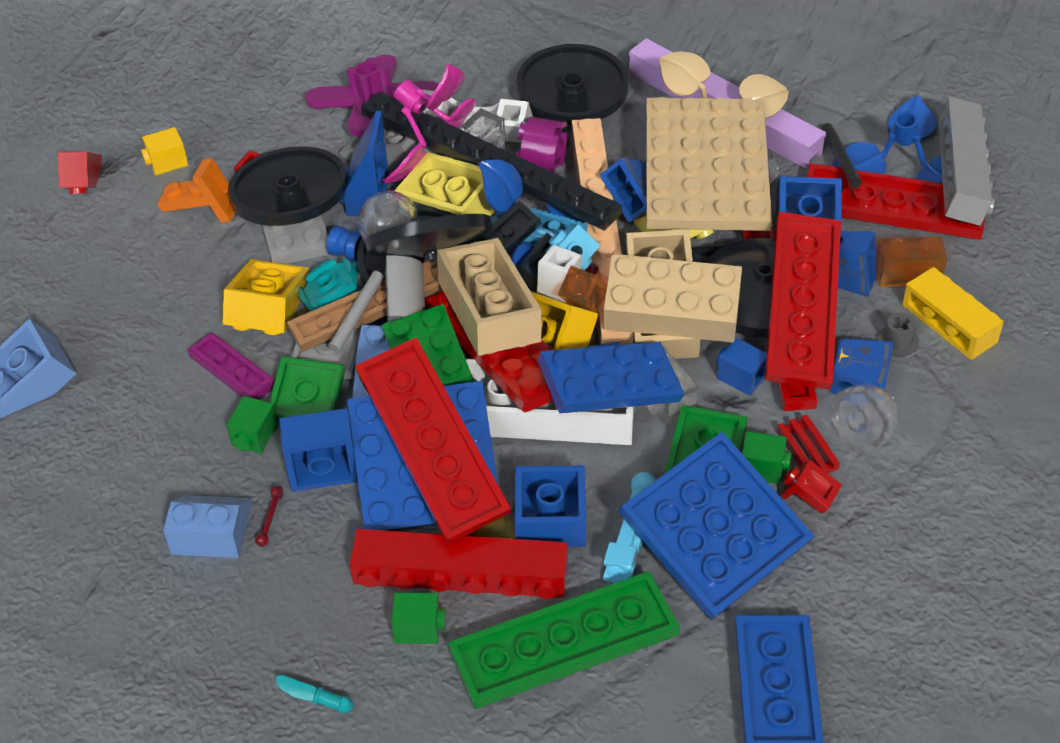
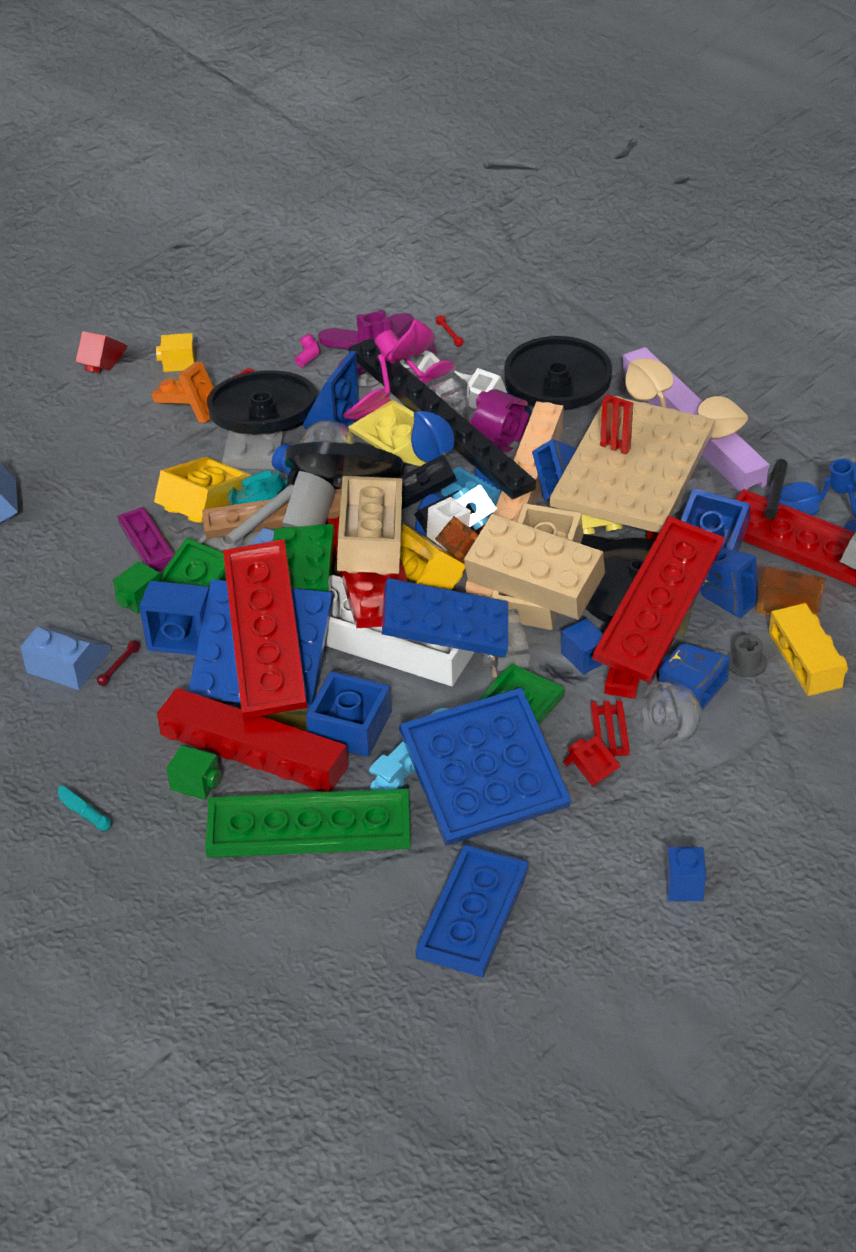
camera: 20 degrees right, 5 degrees down
(303, 116) = (309, 352): none -> dark pink arm
(421, 54) = (441, 320): none -> red hinge
(686, 146) = (612, 439): none -> red tile
(767, 455) = (562, 724): green brick -> none
(964, 581) = (685, 873): none -> blue brick

